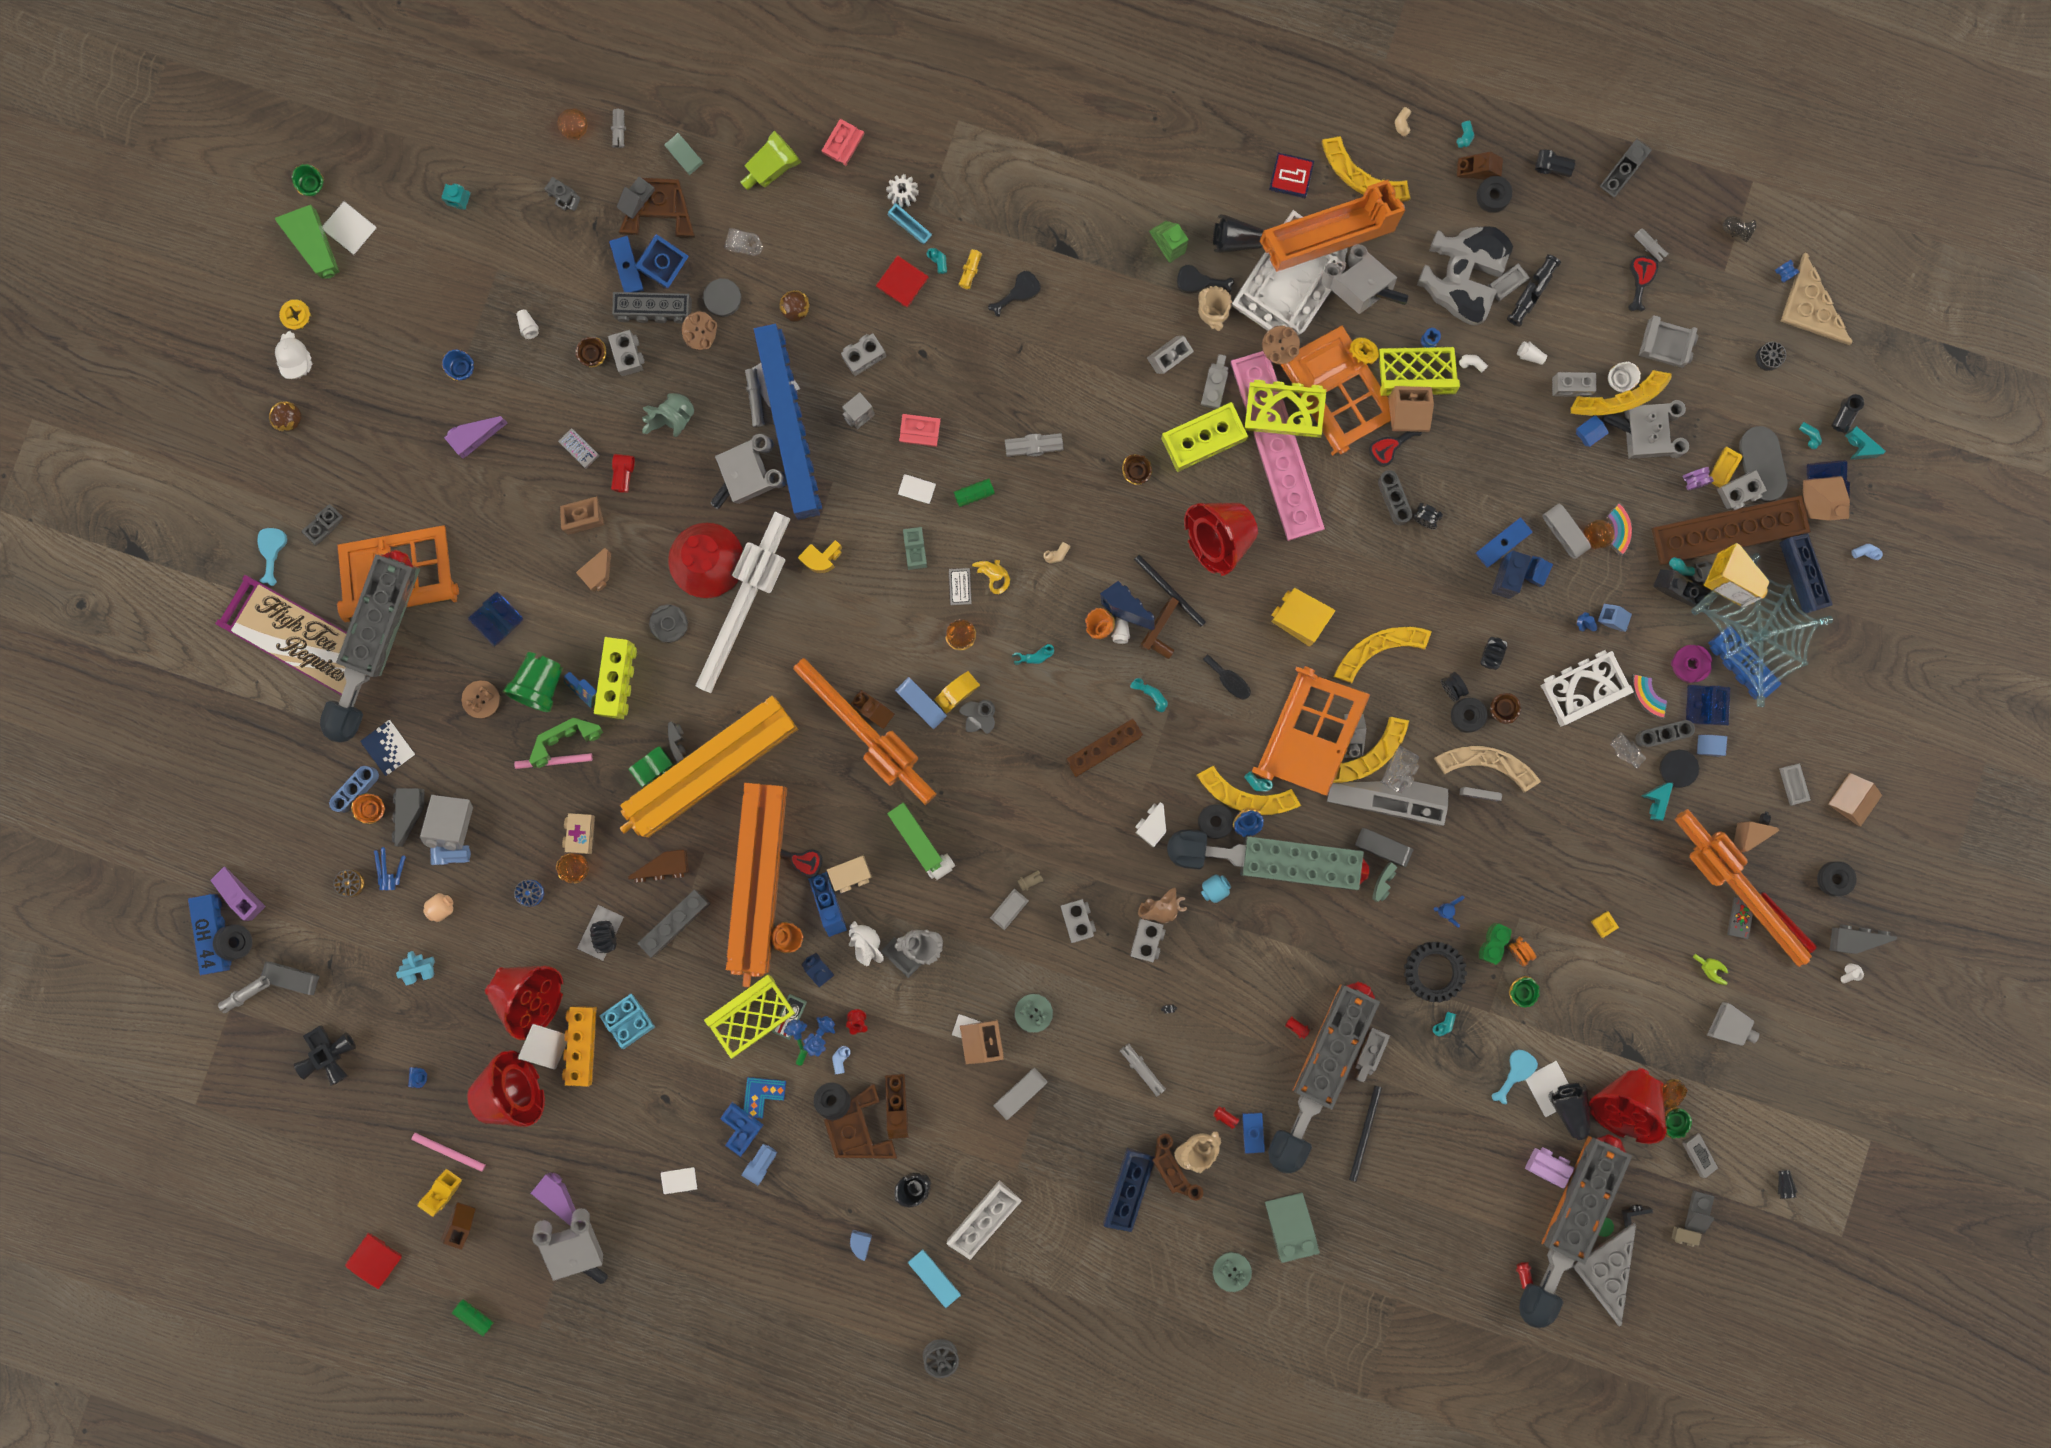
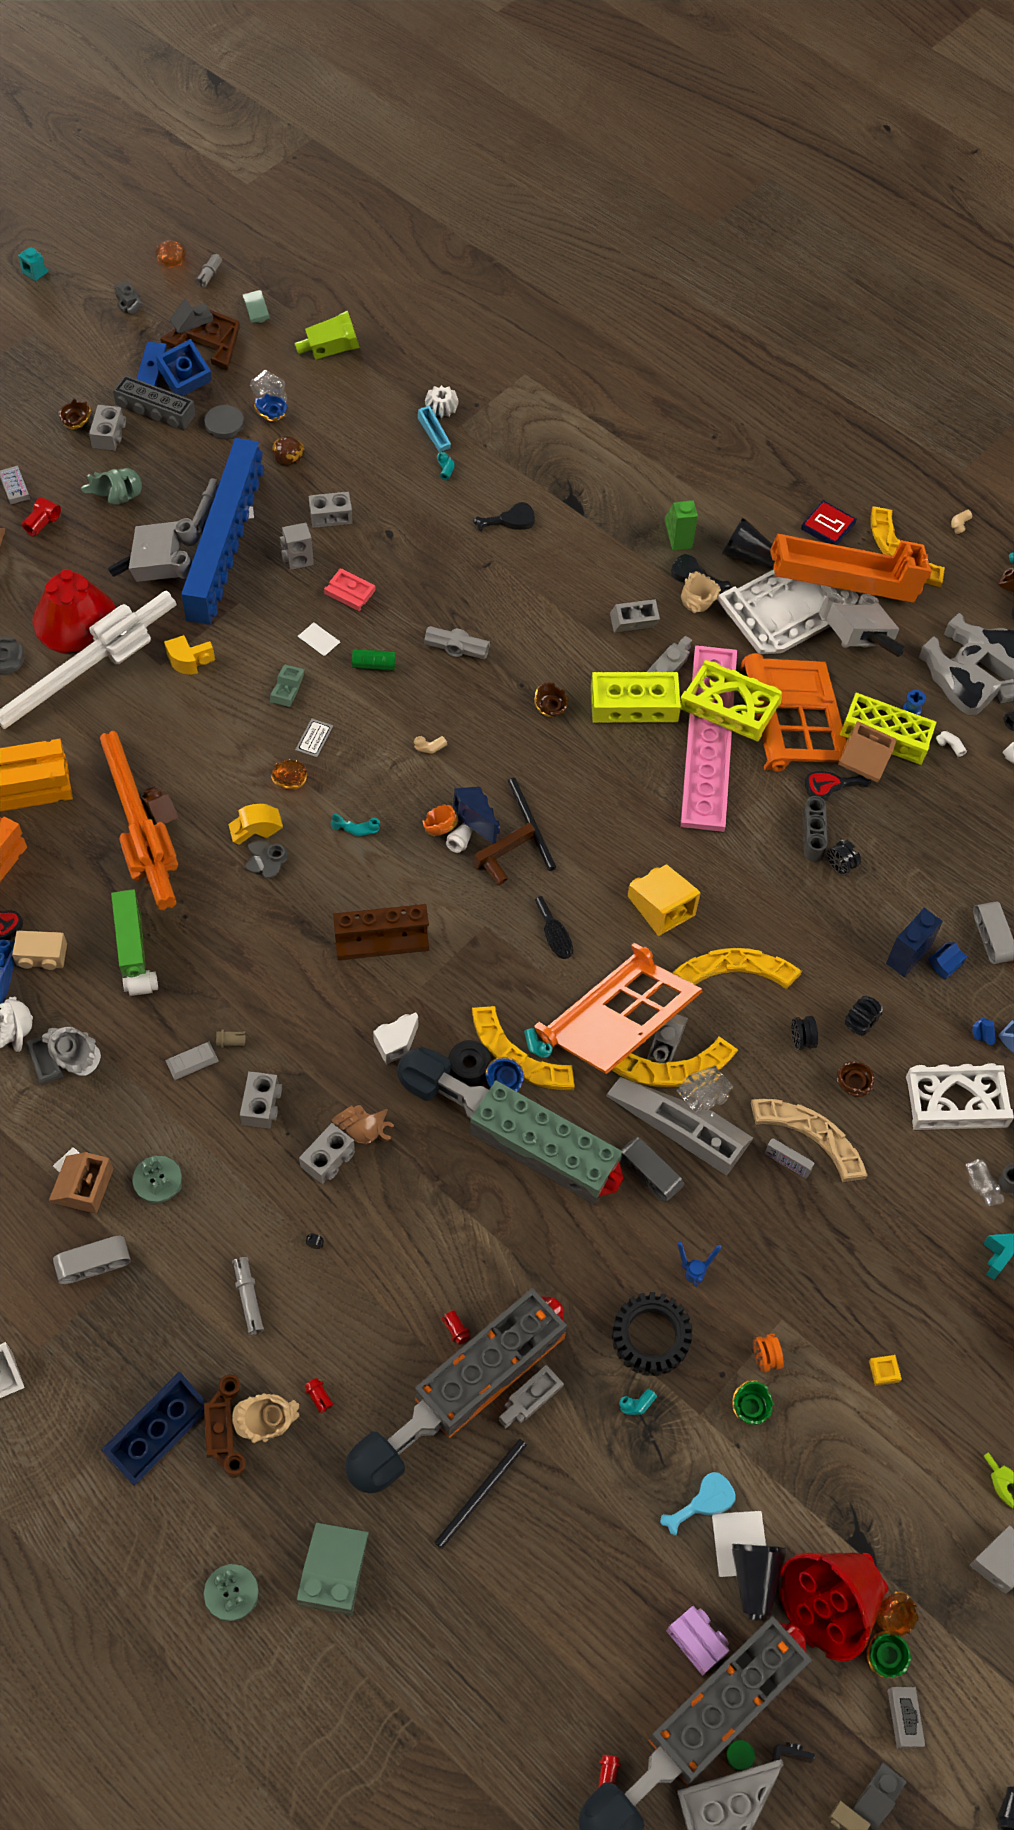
camera: 20 degrees right, 25 degrees down
(527, 326) = (30, 378): white cone -> none
(701, 322) = (192, 428): medium nougat plate -> none
(757, 266) = (270, 407): none -> blue hair
(842, 142) = (407, 349): coral plate -> none
(902, 281) = (401, 468): red tile -> none
(921, 703) = (212, 821): medium blue beam -> none
(970, 269) = (472, 483): yellow pin -> none
(994, 572) = (354, 729): yellow piece -> none
(1161, 702) = (466, 912): teal arm -> none
(1215, 888) = (434, 1131): medium azure head -> none
(1220, 534) = (609, 779): red cone -> none
(1253, 1132) = (343, 1430): blue plate -> none
(1289, 342) = (762, 643): medium nougat plate -> none
(1368, 347) = (838, 688): yellow gear -> none
(1381, 887) = (629, 1210): sand green slope -> none
(1476, 707) = (806, 1083): black tyre -> none
(1493, 948) = (736, 1331): green brick -> none
(1512, 536) = (899, 919): blue tile -> none

